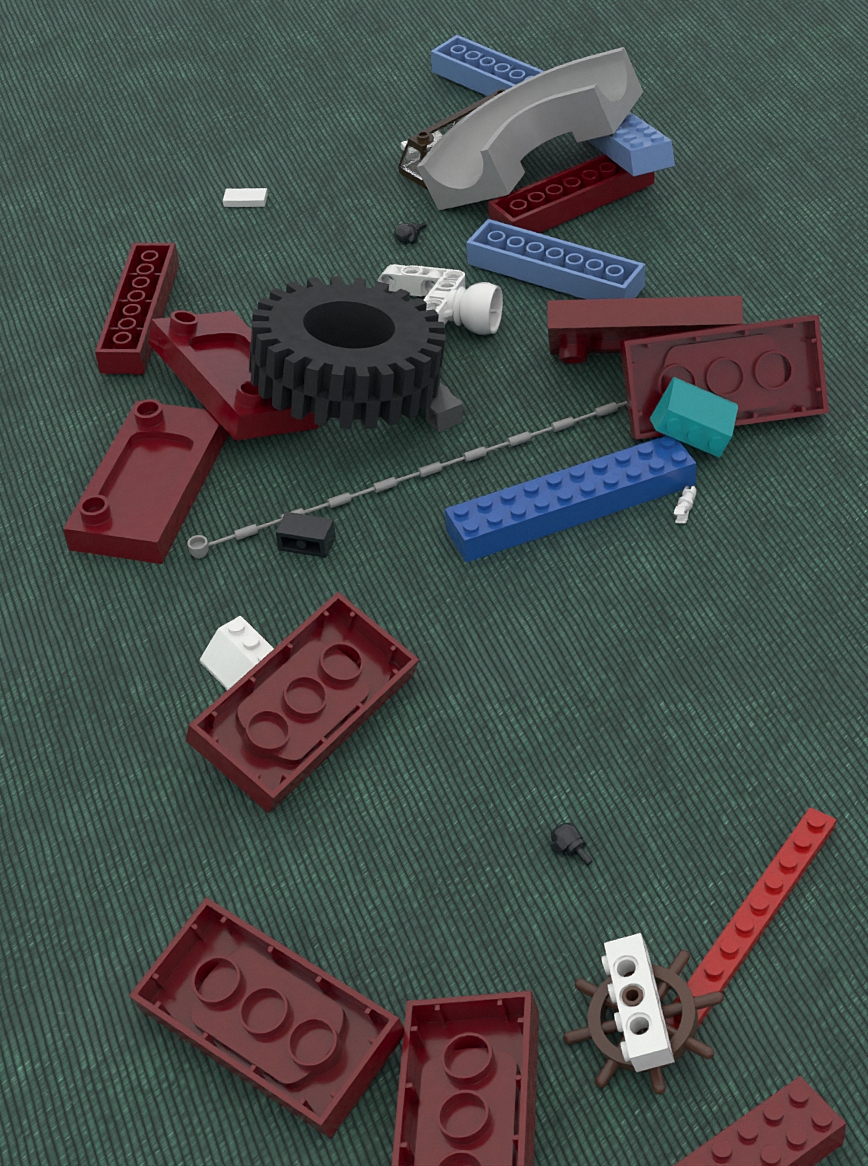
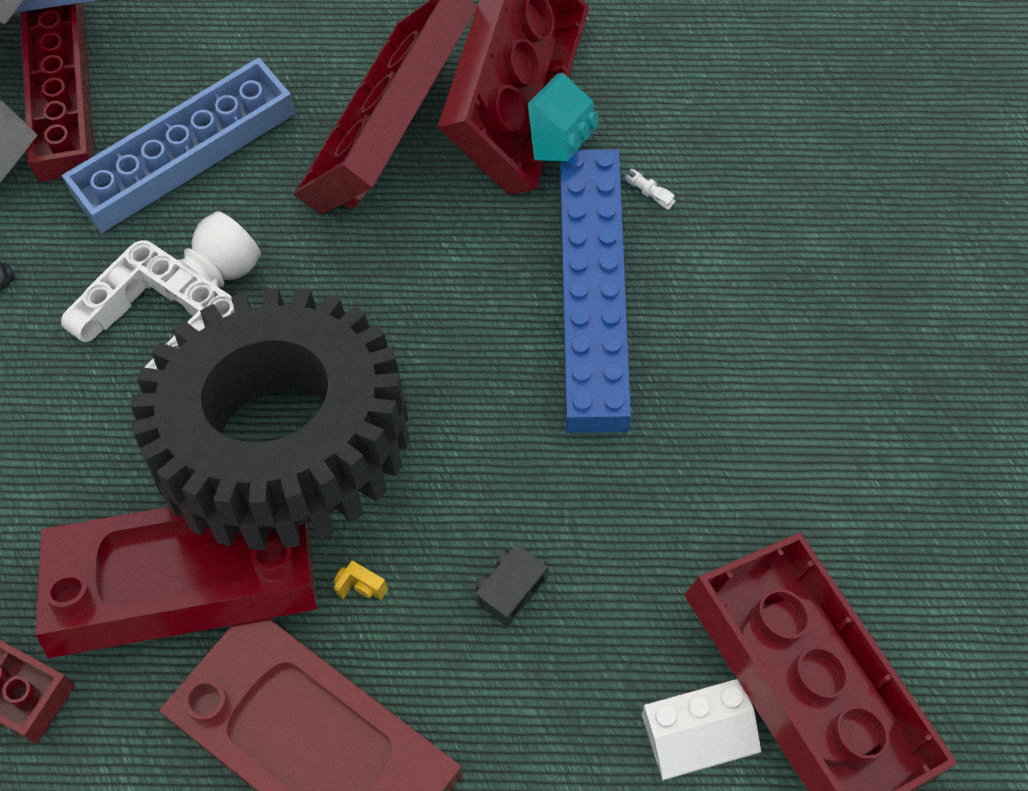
camera: 70 degrees left, 20 degrees up
(199, 546) = (464, 717): light grey piece -> none
(272, 463) = (365, 582): none -> yellow bracket

